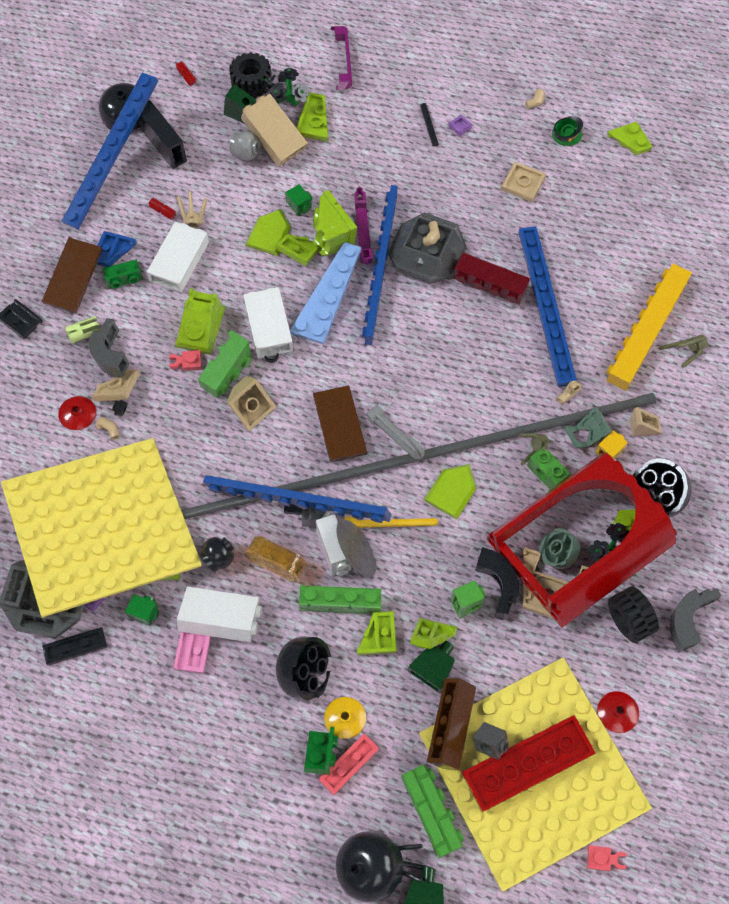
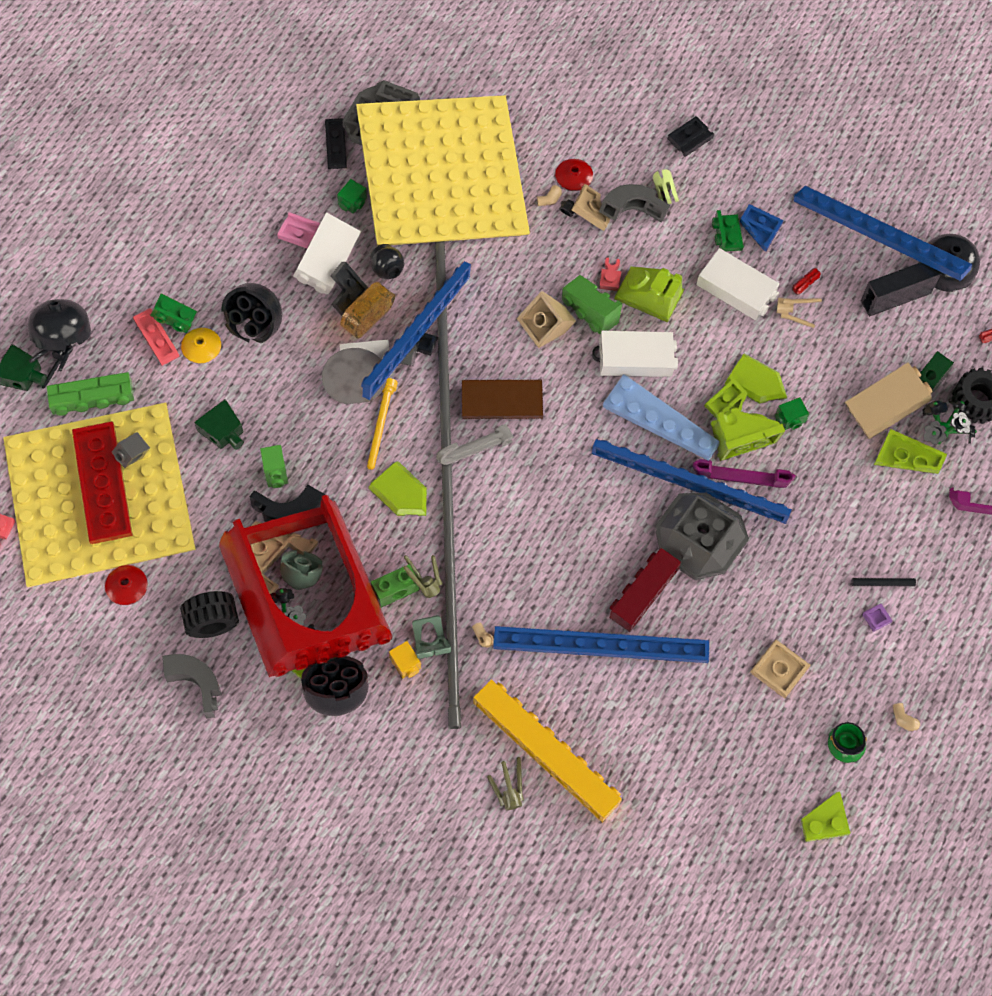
camera: 100 degrees right, 0 degrees up
(72, 275) = (731, 184): reddish brown tile -> none
(244, 145) = (873, 368): light grey piece -> none
(251, 581) = (351, 287): none -> black plate
(339, 599) = (311, 359): bright green brick -> none
(379, 635) = (267, 388): lime wing -> none
(431, 633) = (252, 427): lime wing -> none
(433, 236) = (704, 529): tan arm -> none
(451, 724) = (158, 421): reddish brown brick -> none
(644, 423) = (424, 705): tan slope -> none

